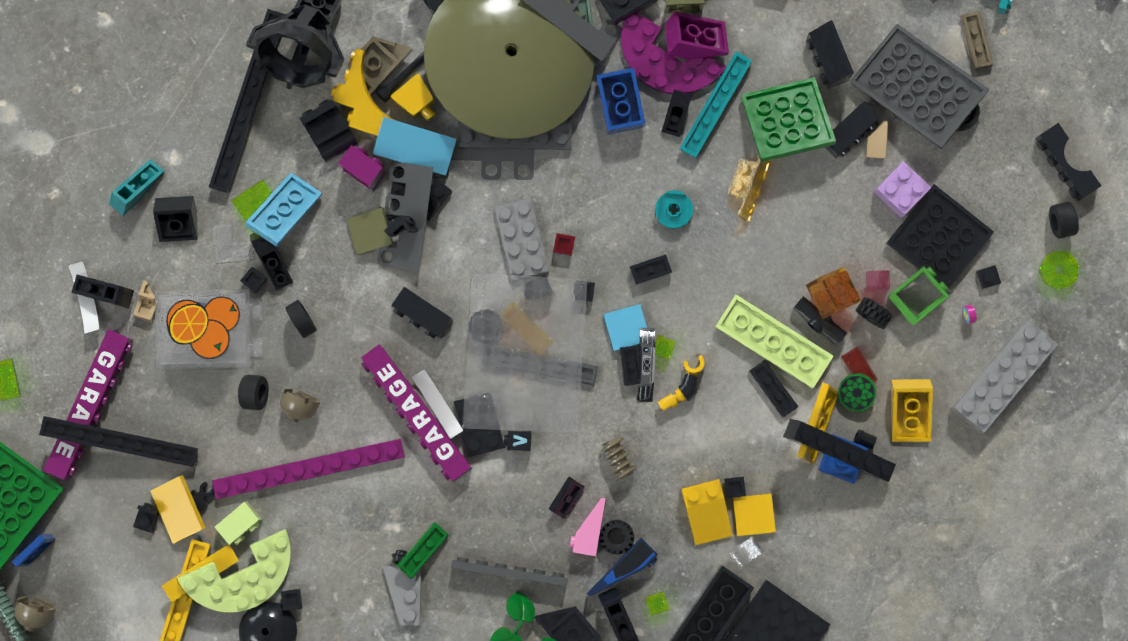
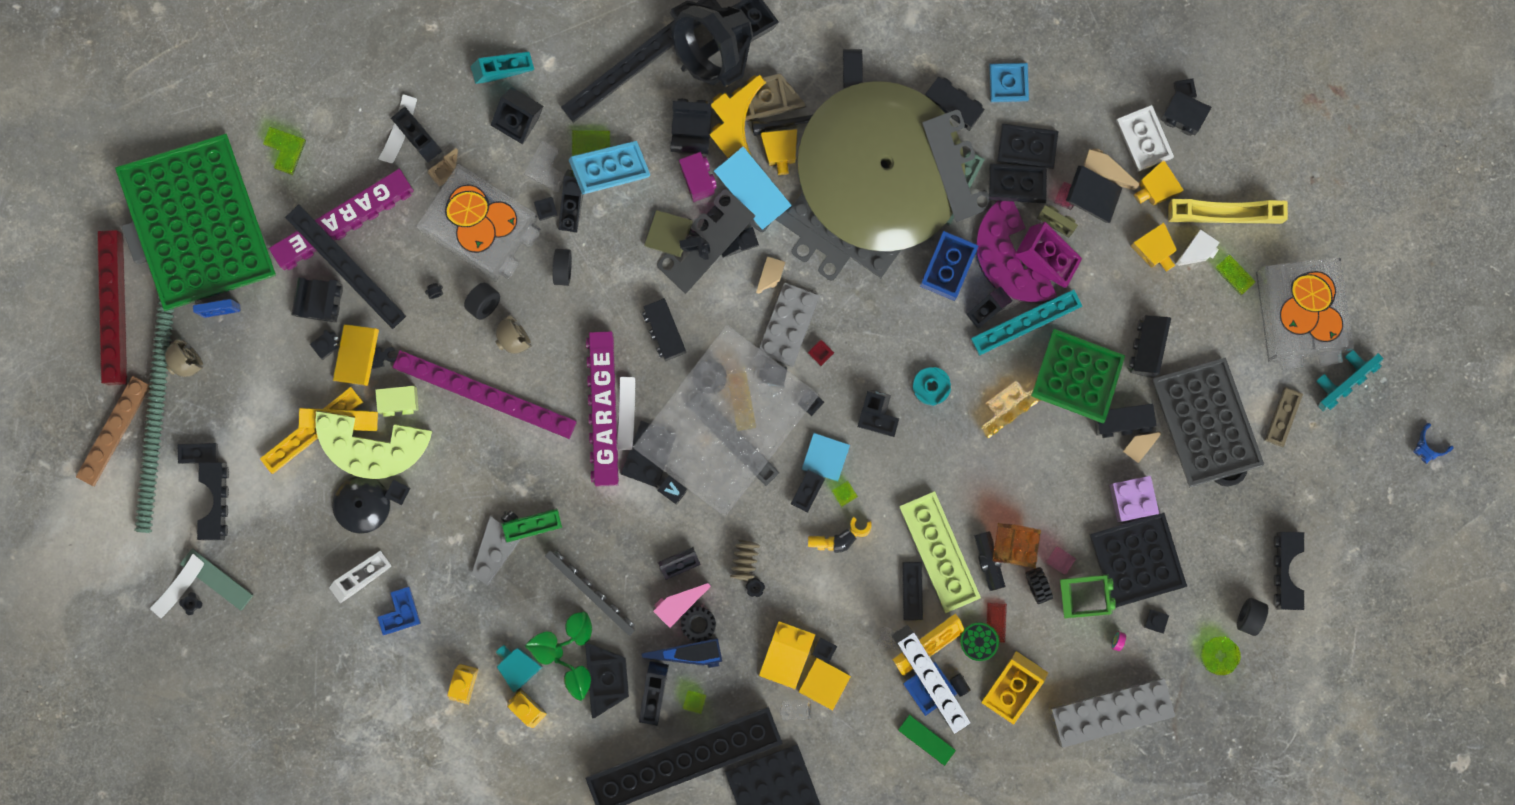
camera: 30 degrees right, 0 degrees up
(113, 485) = (317, 299): none -> black piece
(207, 411) = (434, 291): none -> black plate
(478, 207) = (771, 274): none -> tan slope
(637, 475) = (760, 587): none -> black plate
(638, 253) = (876, 402): none -> black brick
(647, 365) = (820, 499): sticker -> none
(869, 503) = (926, 740): none -> green tile

